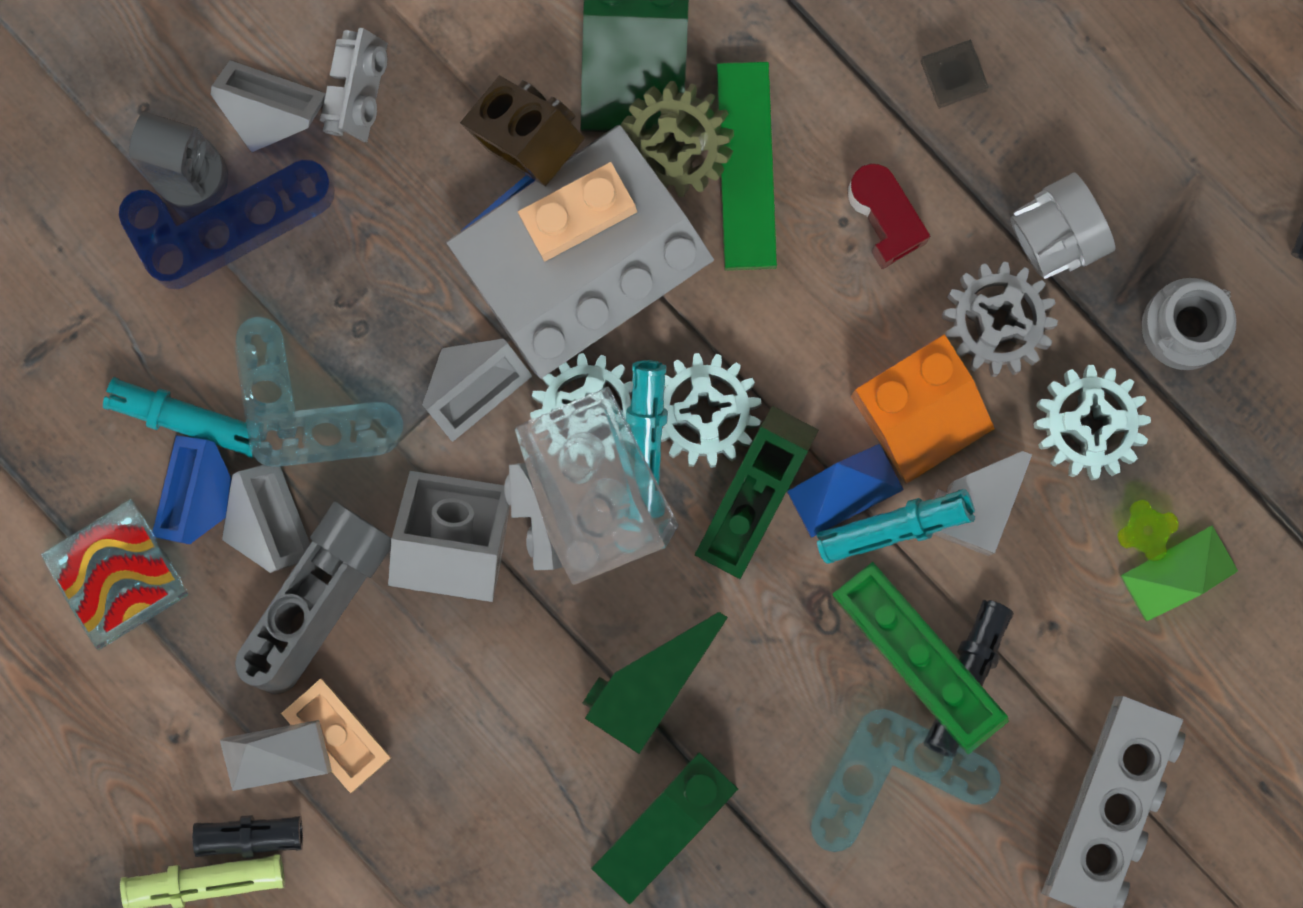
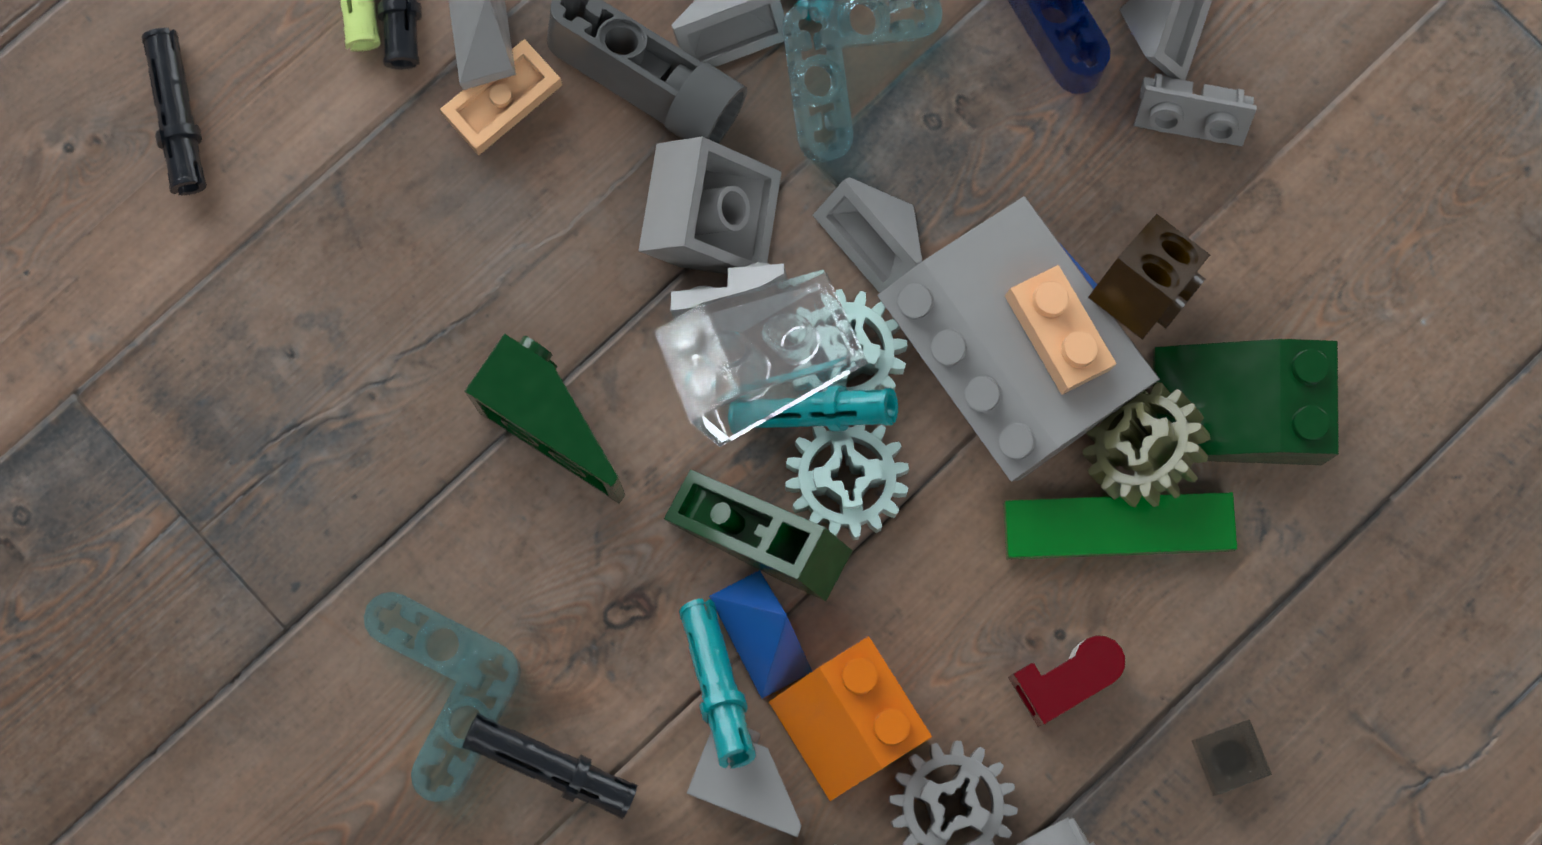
camera: 90 degrees right, 5 degrees down
(664, 828) = (398, 437): dark green slope -> none
(920, 658) = (570, 711): green tile -> none

